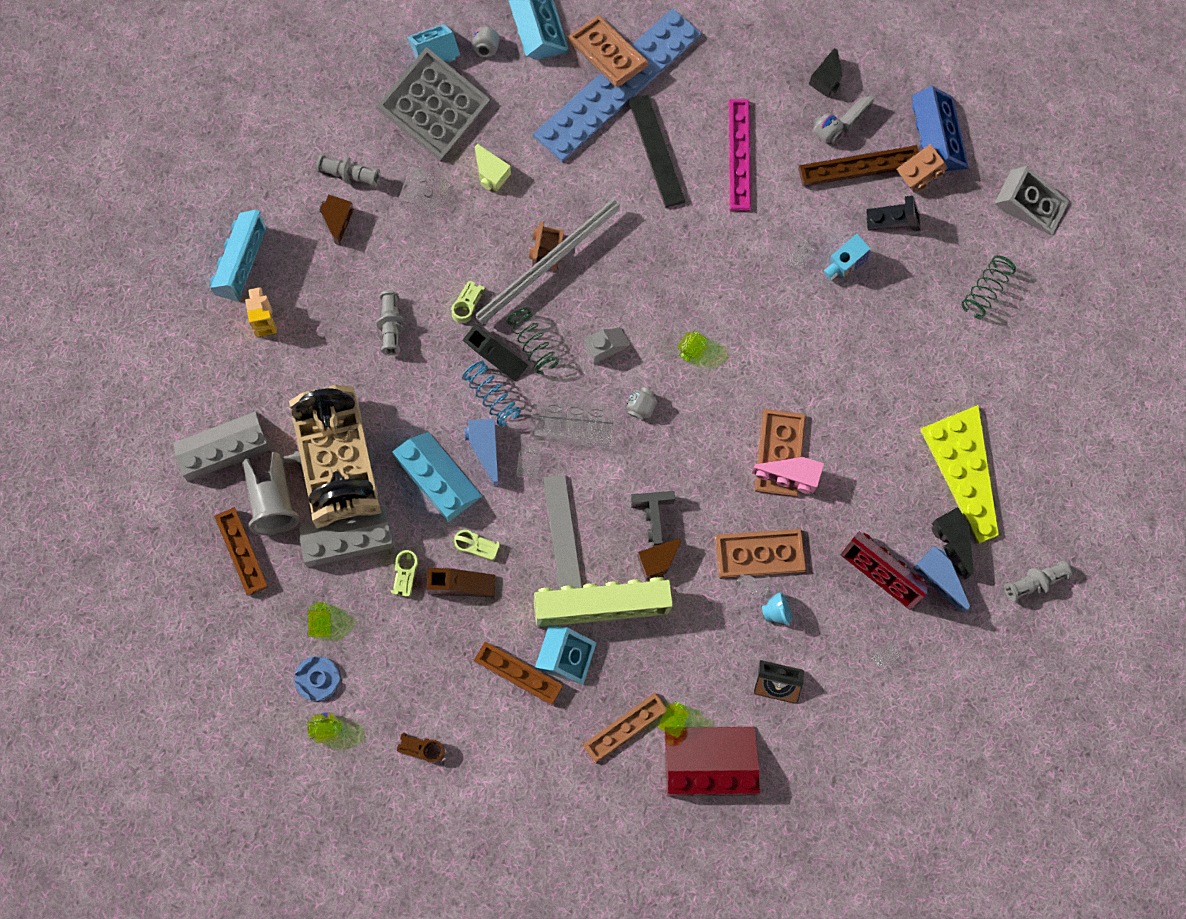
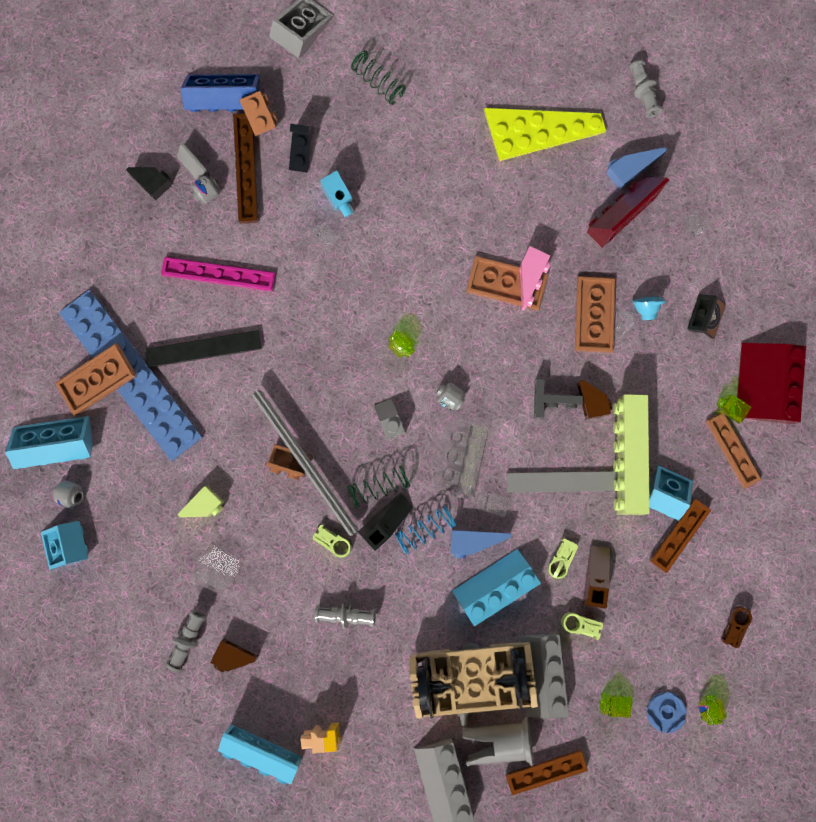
camera: 75 degrees left, 10 degrees up
(432, 103) = (128, 552): light grey plate -> none
(956, 530) = (594, 147): pearl dark grey slope -> none

